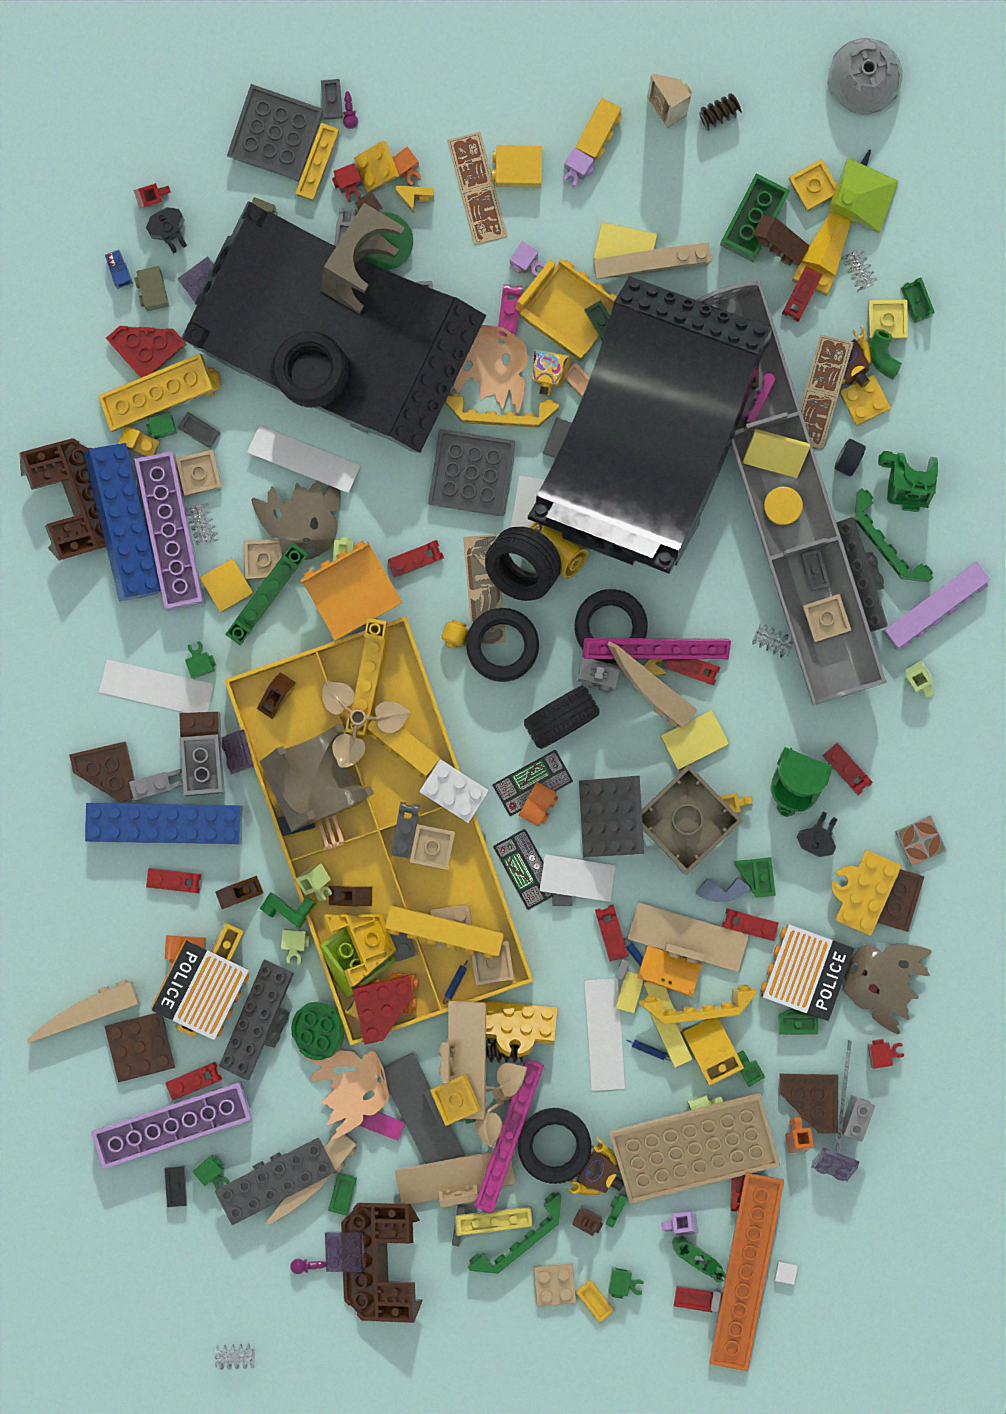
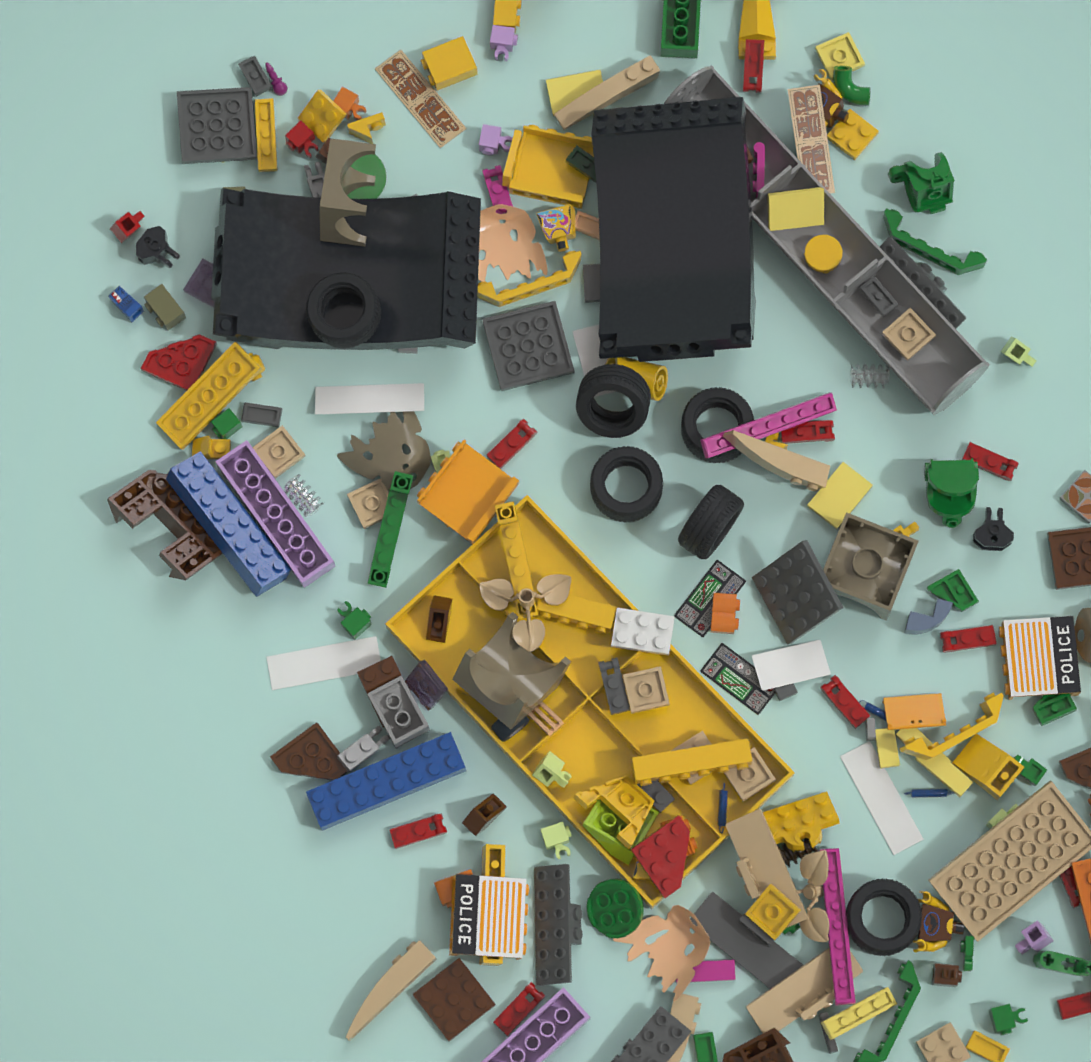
camera: 25 degrees left, 10 degrees down
(226, 585) = (348, 541): yellow slope -> none
(297, 917) = (550, 809): green beam -> none
(350, 896) = (590, 769): reddish brown slope -> none
(454, 634) = (578, 494): yellow head -> none
(481, 591) = (583, 443): sticker -> none
(598, 674) = (726, 471): light grey hinge -> none
(688, 937) = (916, 674): tan bracket -> none
(780, 240) = (713, 26): reddish brown brick -> none
(850, 457) = (862, 187): black wheel -> none
(859, 269) = (794, 24): clear piece -> none
(865, 891) = (1058, 561): yellow plate -> none
(917, 300) = (860, 28): green hinge -> none
(936, 605) = (1001, 282): lavender brick -> none

